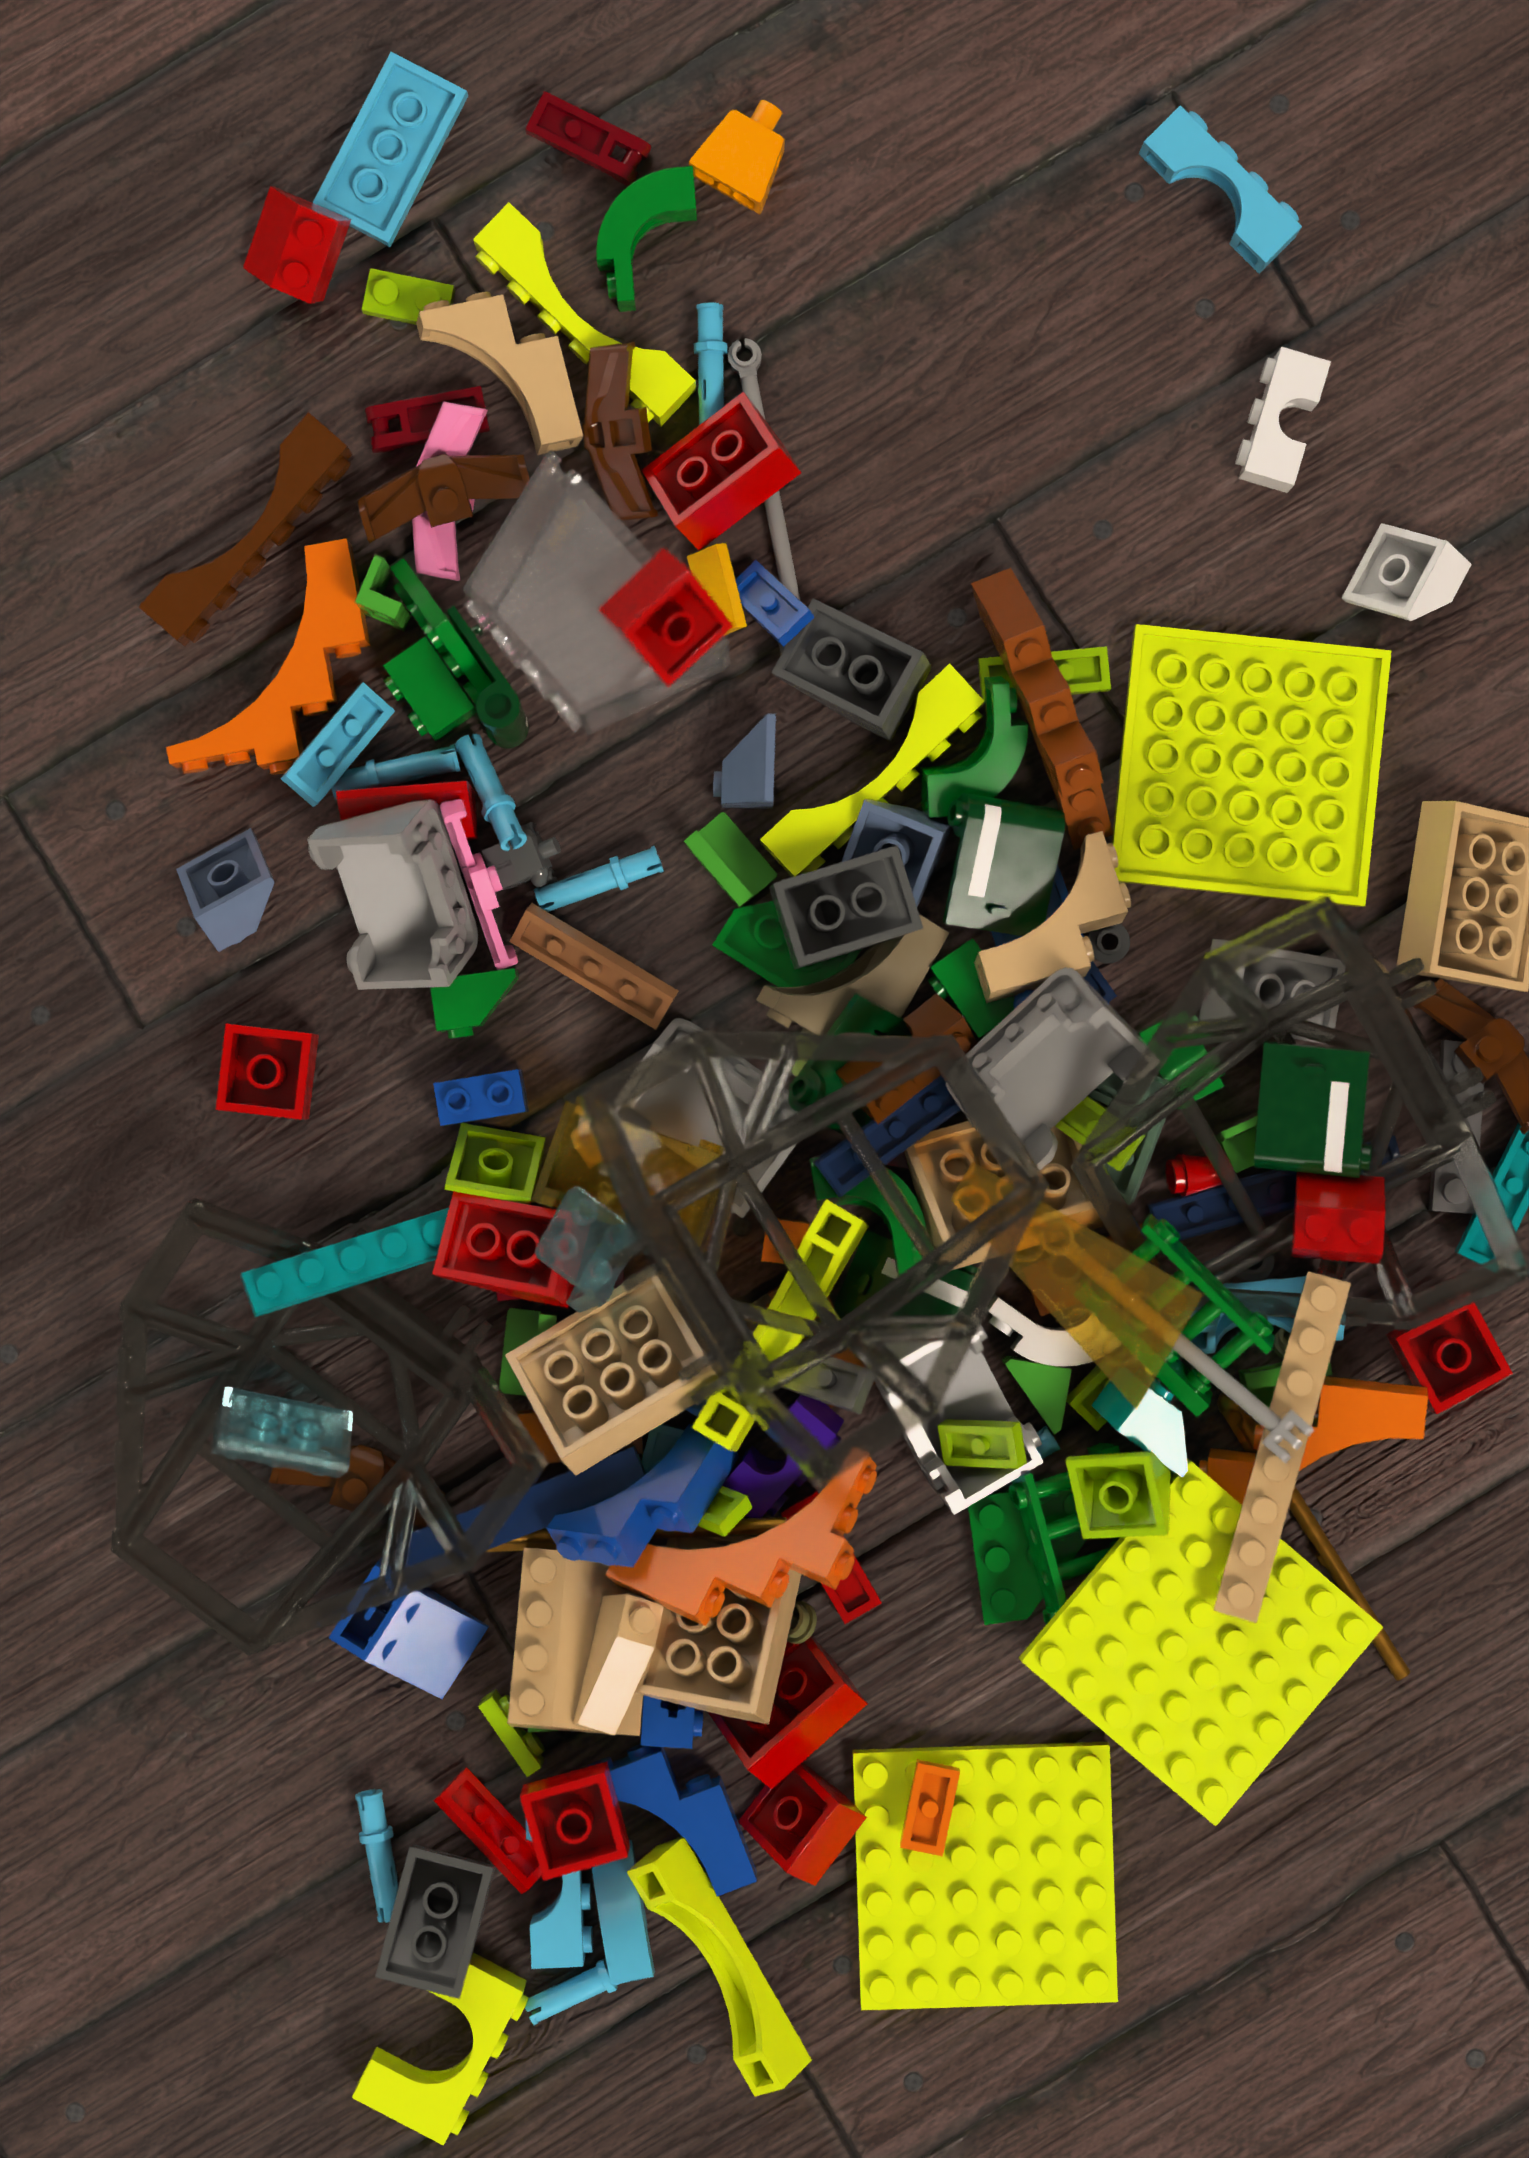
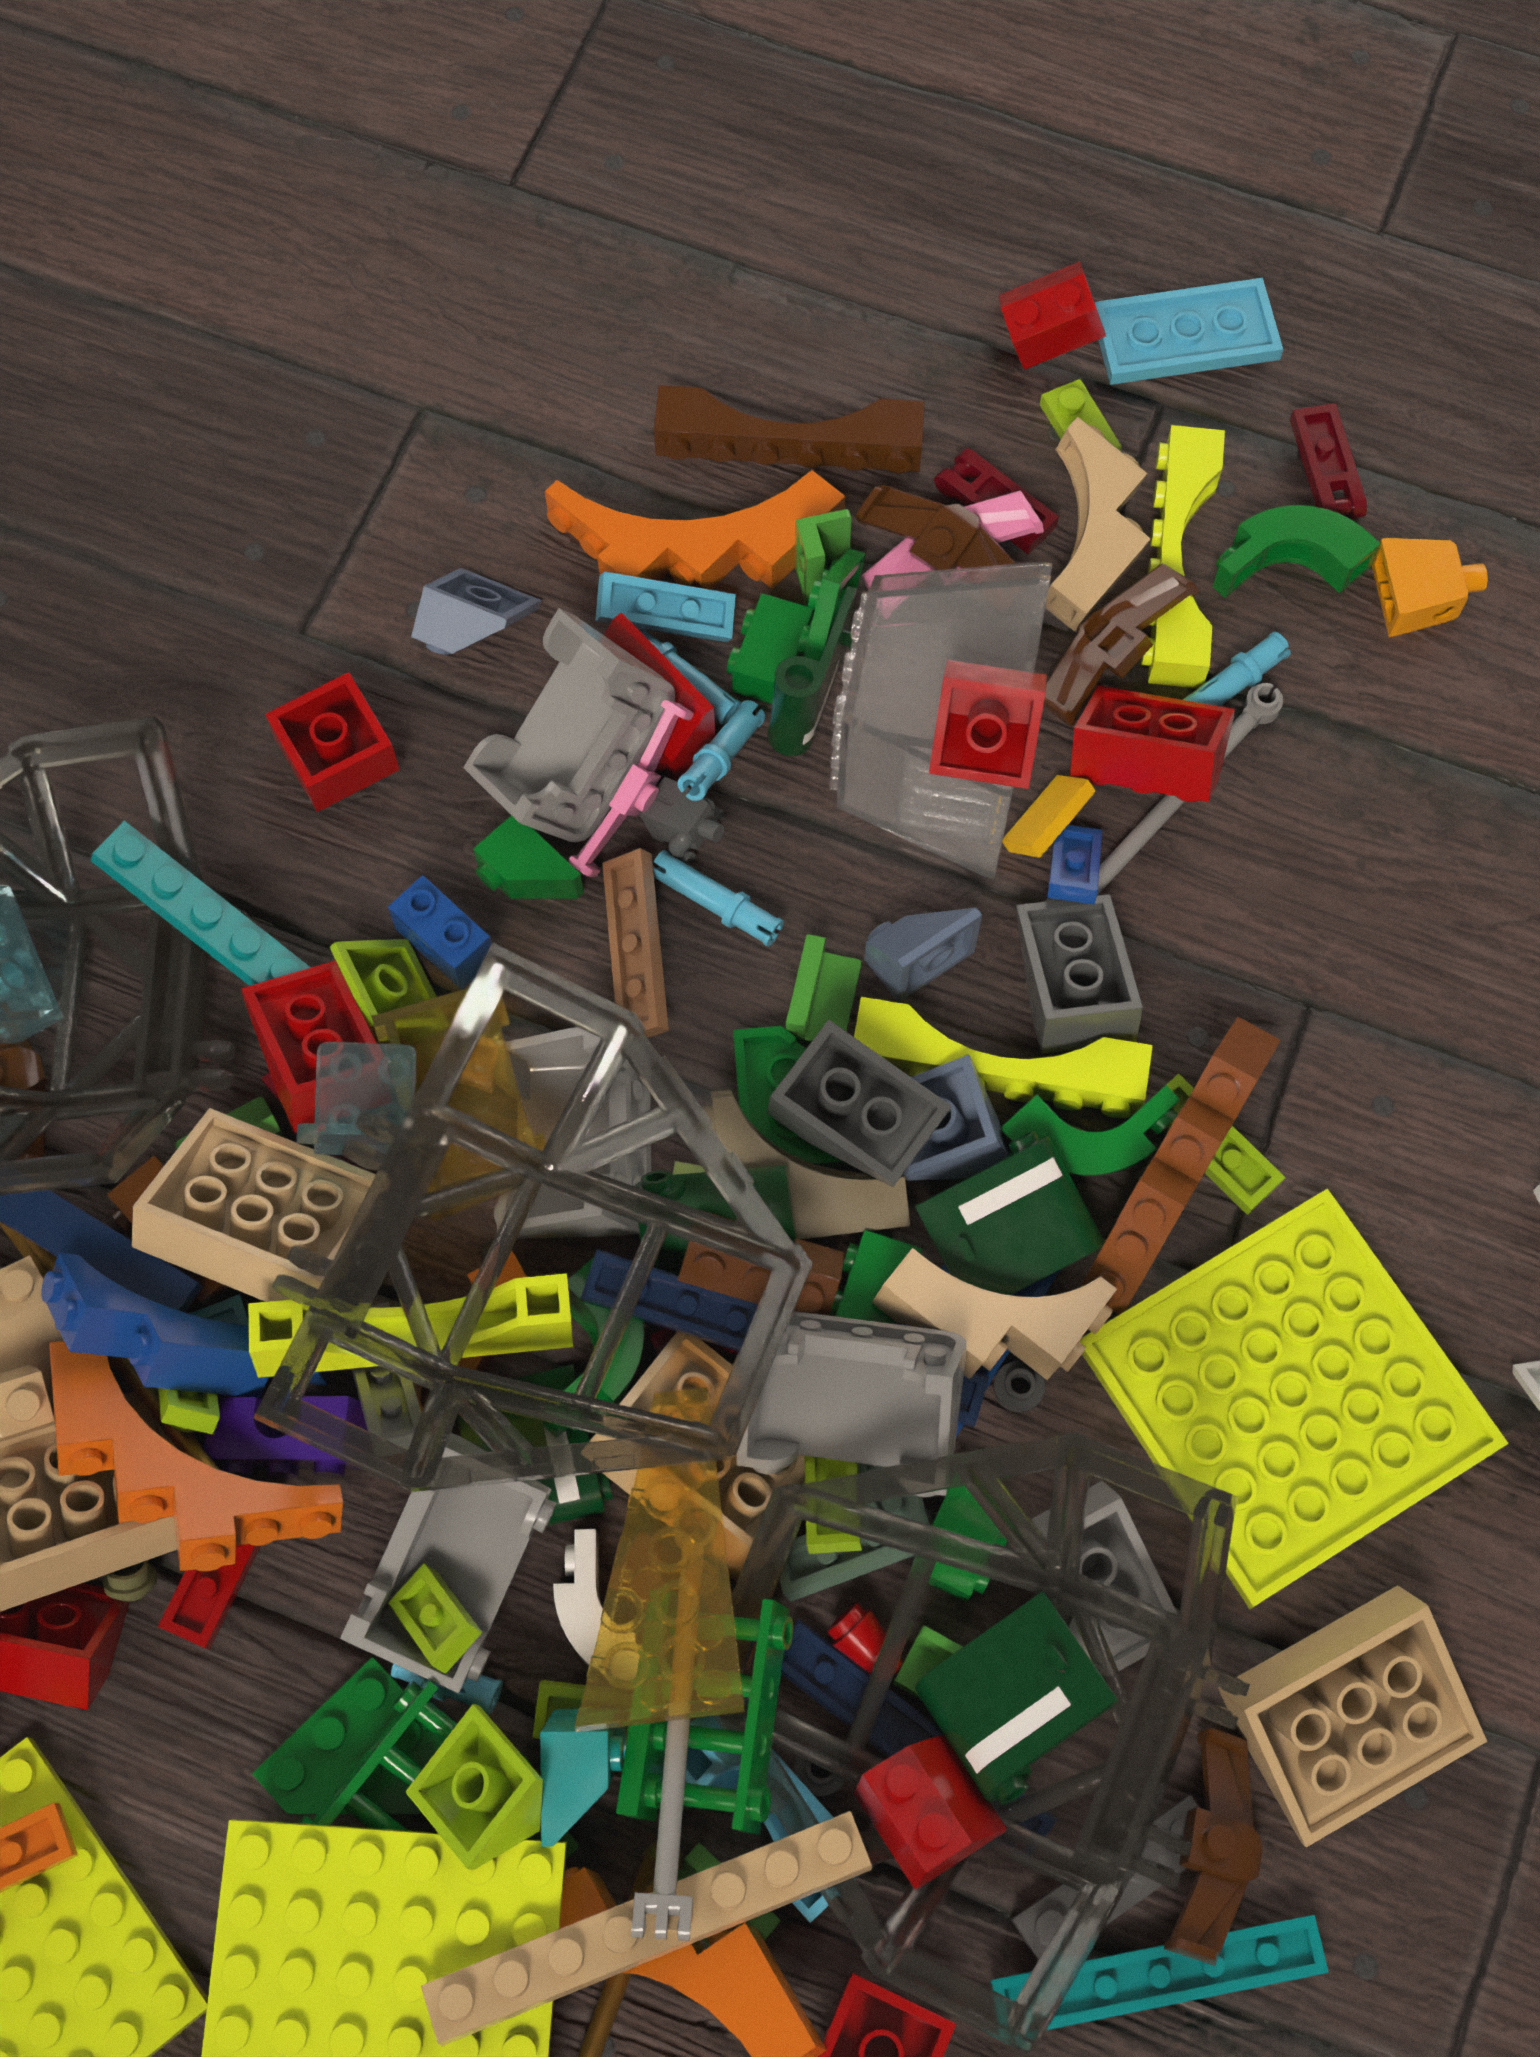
camera: 50 degrees right, 20 degrees down
(1044, 1386) = (538, 1648): bright green slope -> none

